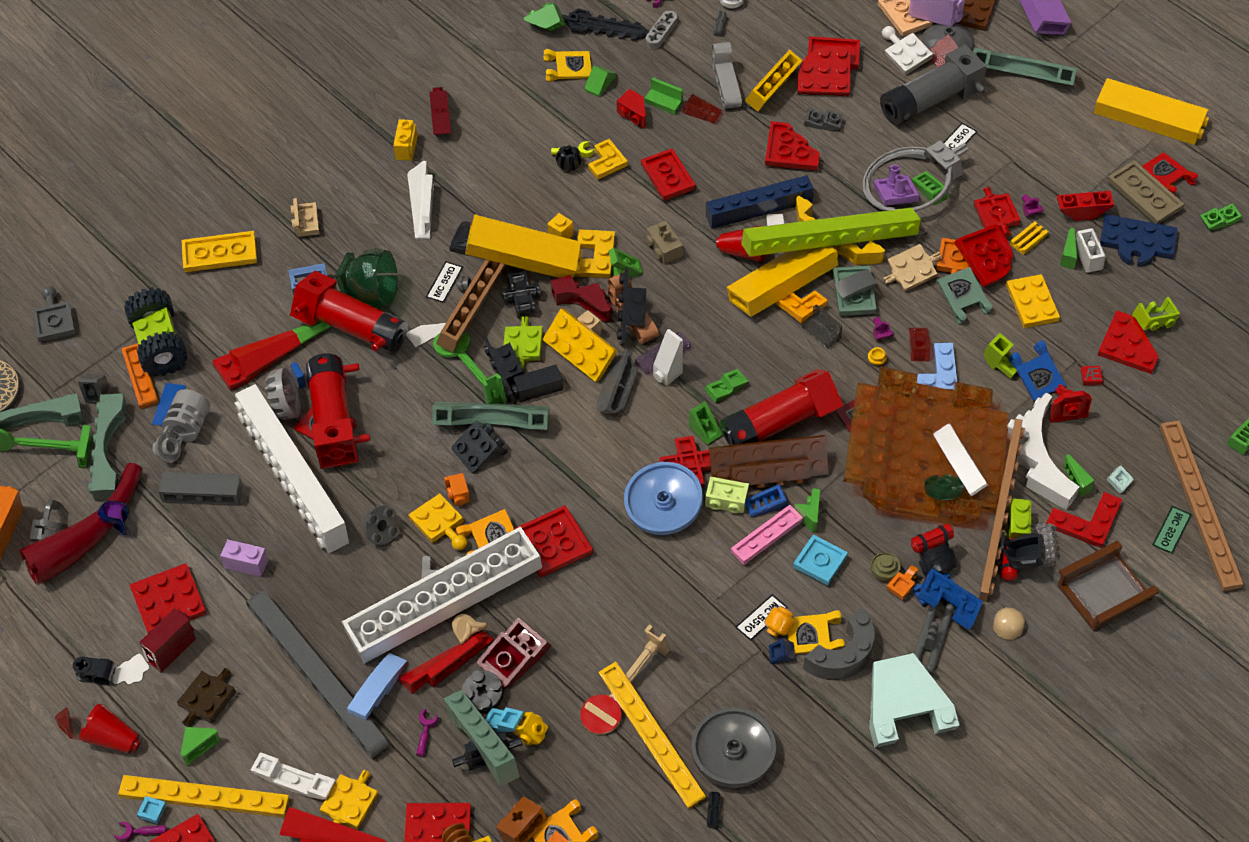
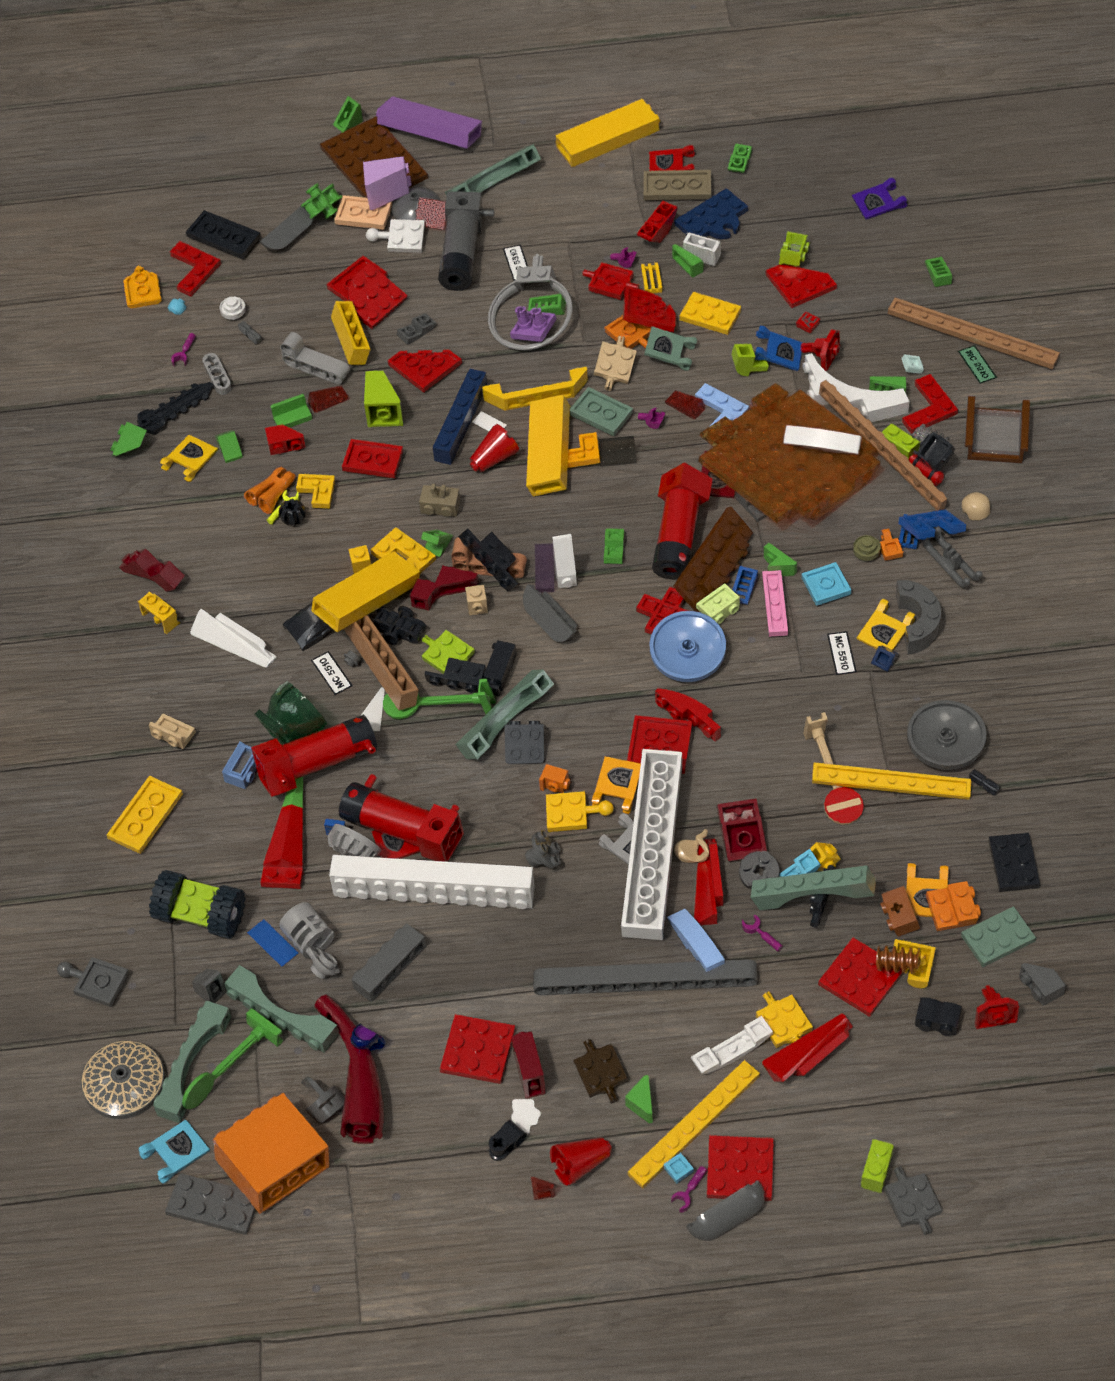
camera: 50 degrees left, 0 degrees up
(140, 380) = (222, 947): orange tile -> none
(244, 558) = (489, 967): lavender brick -> none
(576, 131) = (270, 490): none -> orange piece
(580, 345) = (491, 614): yellow plate -> none
(601, 541) = (686, 708): none -> red slope
(703, 423) = (639, 580): bright green slope -> none
(722, 140) = (381, 401): none -> lime slope
(779, 621) = (860, 641): light orange head -> none
(830, 231) = (543, 386): lime brick -> none
(856, 283) = (602, 404): dark grey slope -> none
(877, 356) = (674, 435): yellow plate -> none
(906, 690) = (989, 601): light aqua wedge -> none
(935, 549) = (883, 507): black piece -> none
(944, 487) = (837, 465): clear green tile -> none

